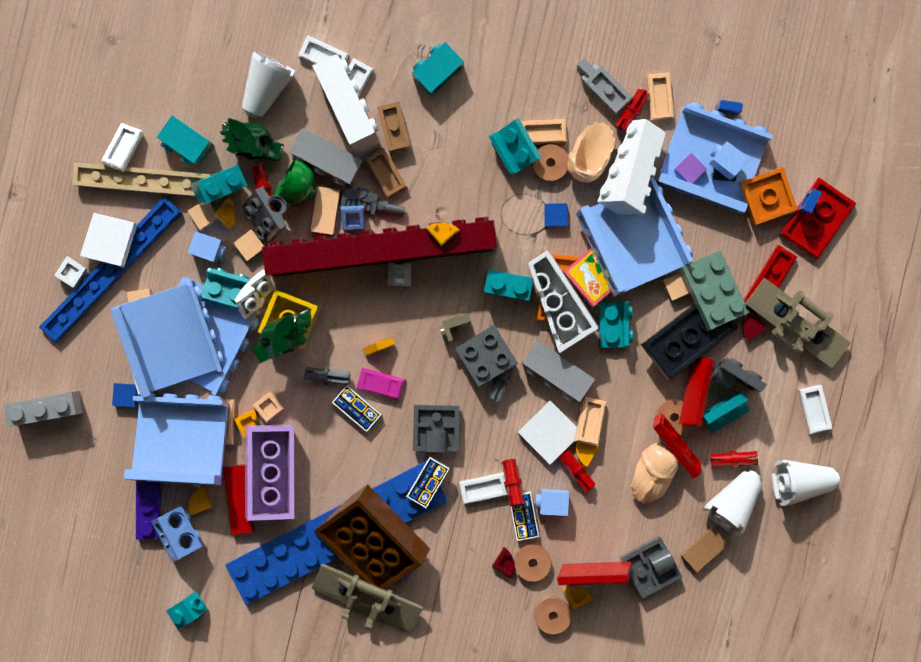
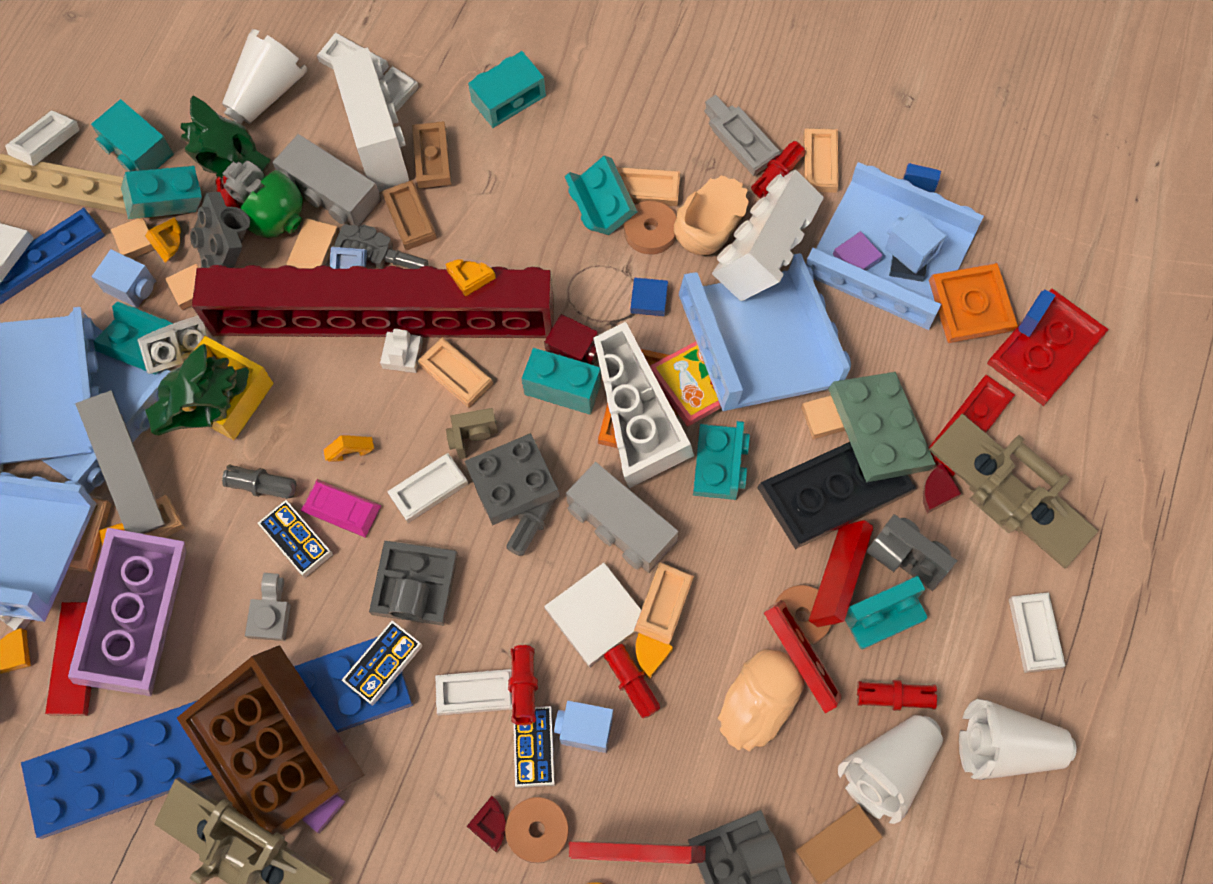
camera: 10 degrees right, 20 degrees down
(240, 380) = (120, 463): none -> light grey tile
(273, 169) = (243, 180): none -> light grey gear
(350, 459) = (268, 616): none -> light grey plate
(433, 364) = (428, 487): none -> white tile
(437, 284) = (455, 372): none -> light nougat tile
(511, 258) = (572, 340): none -> dark red brick

